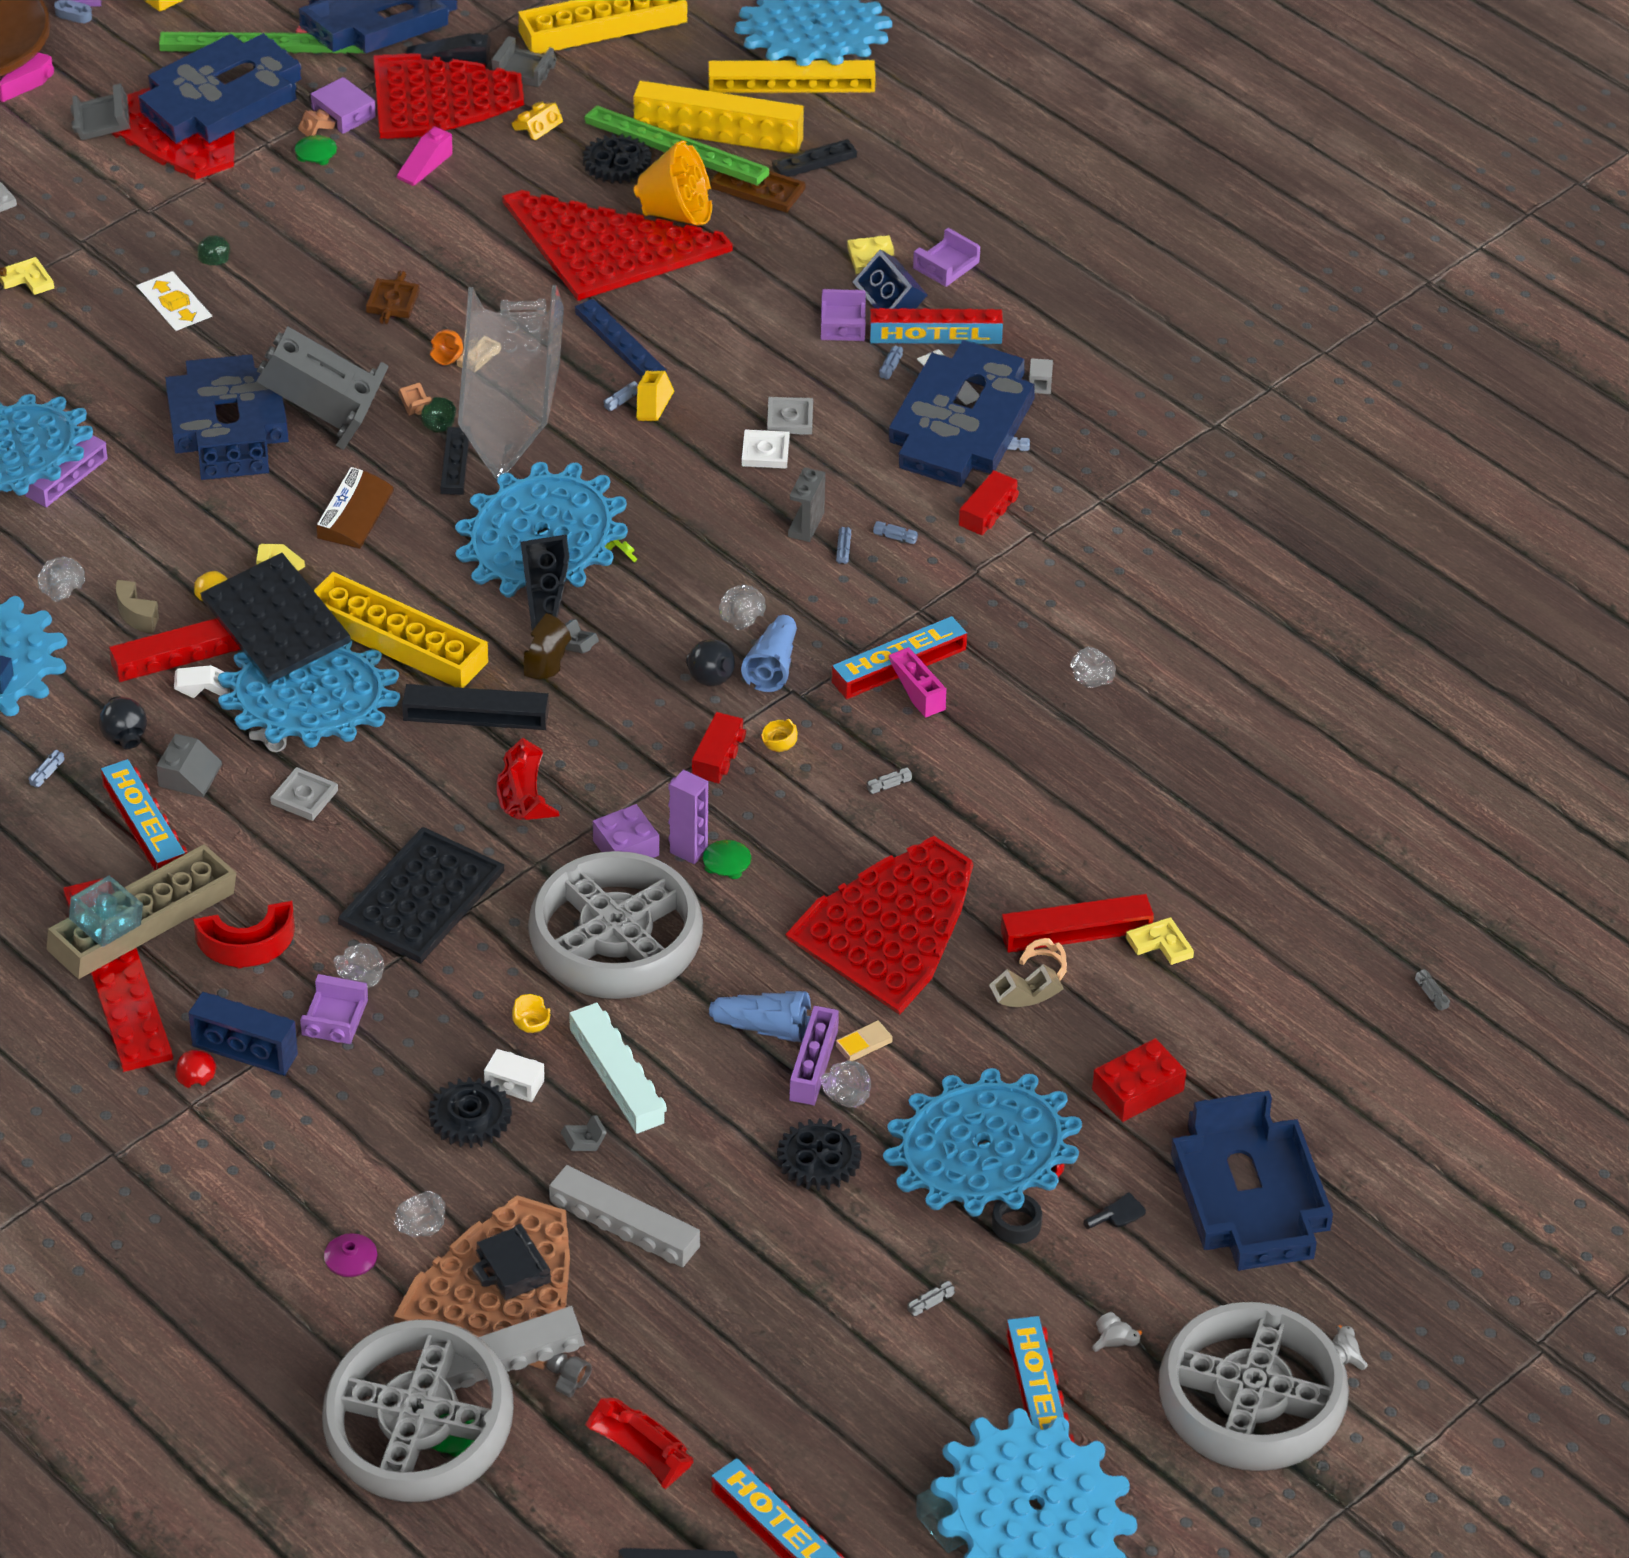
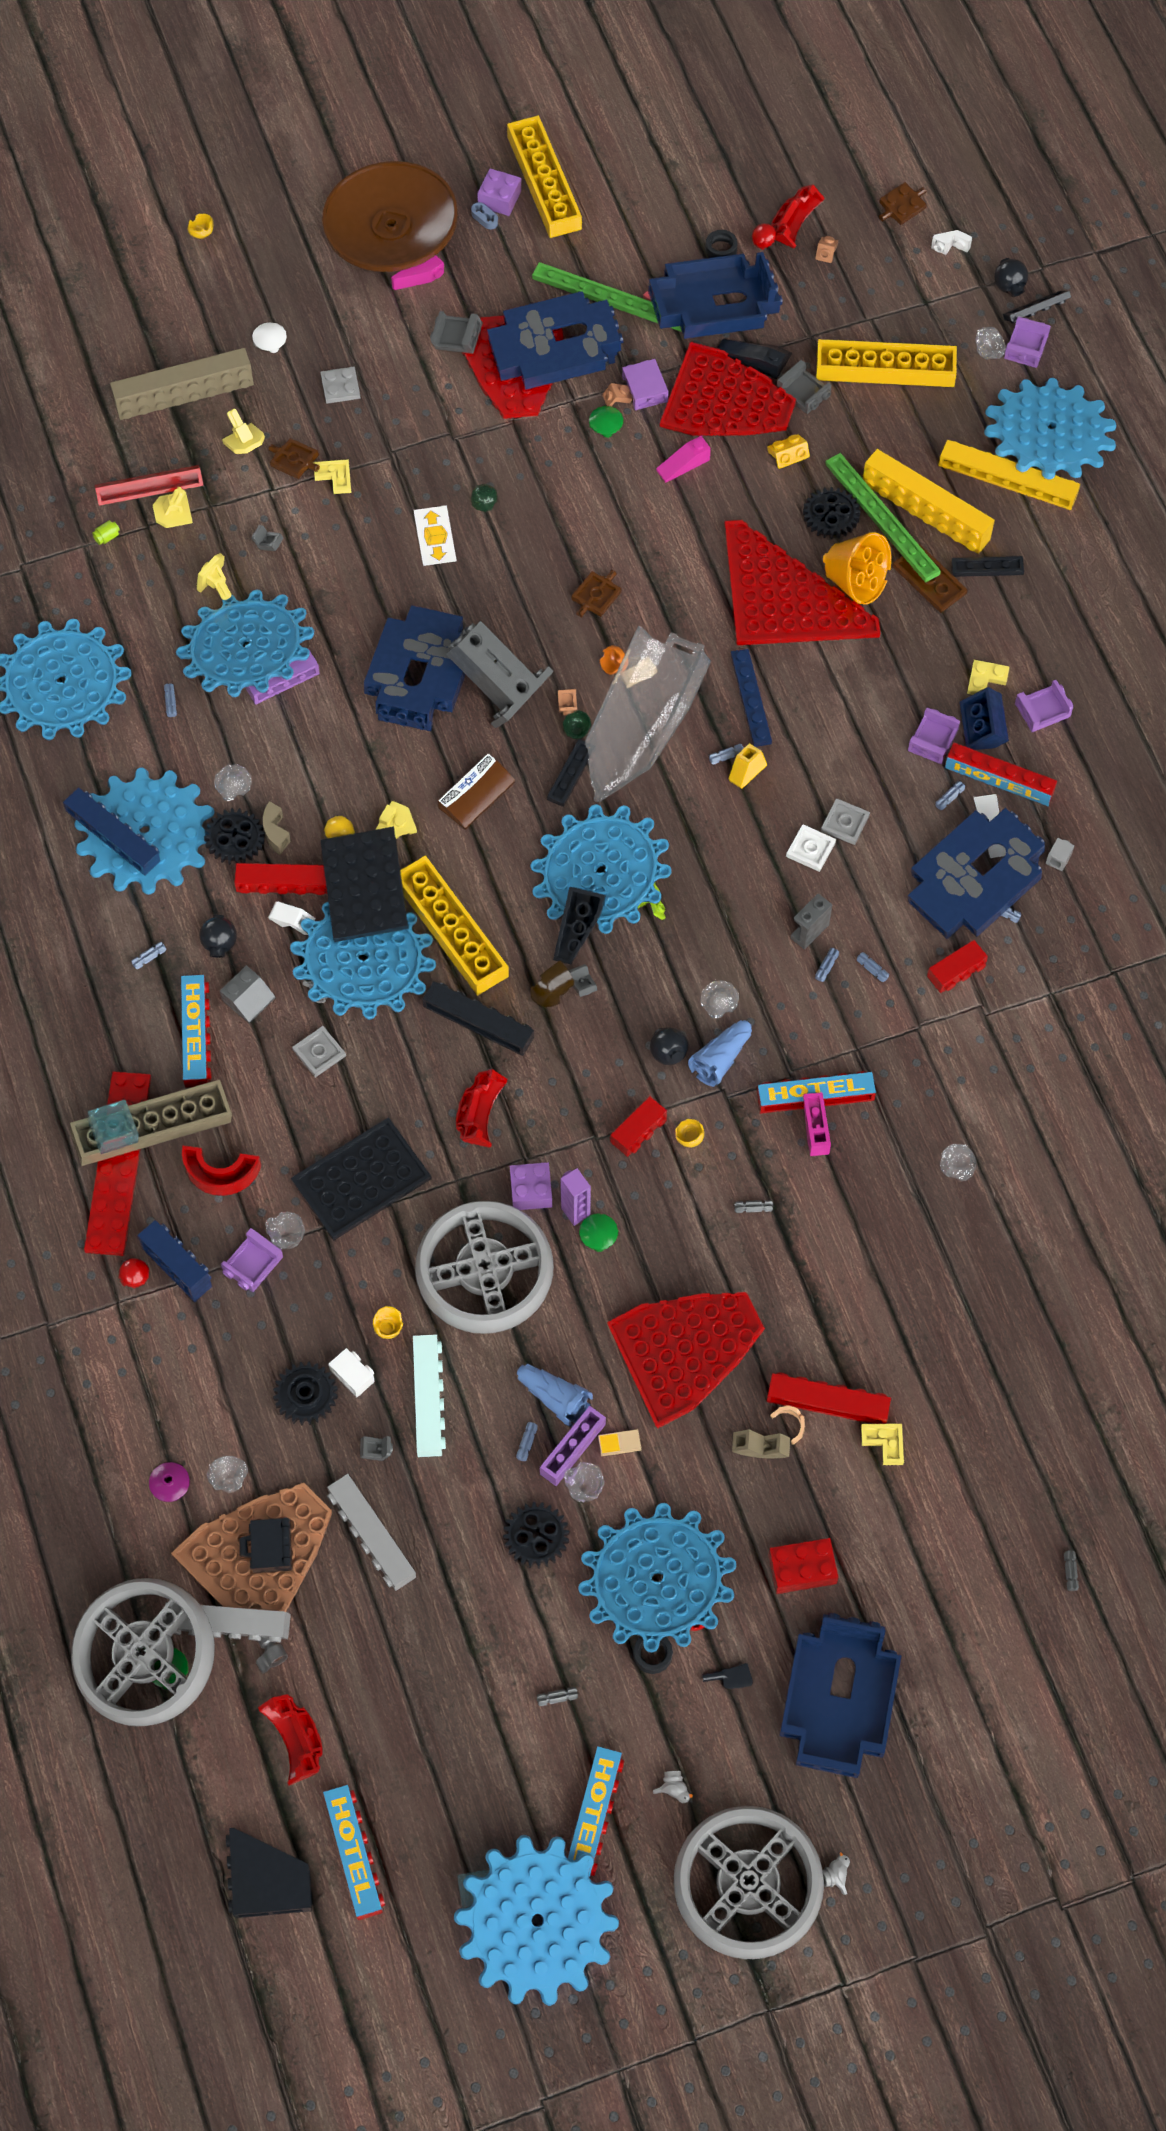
camera: 25 degrees right, 20 degrees up
(90, 627) = (231, 850): none -> black gear
(756, 1074) = (526, 1441): none -> sand blue axle

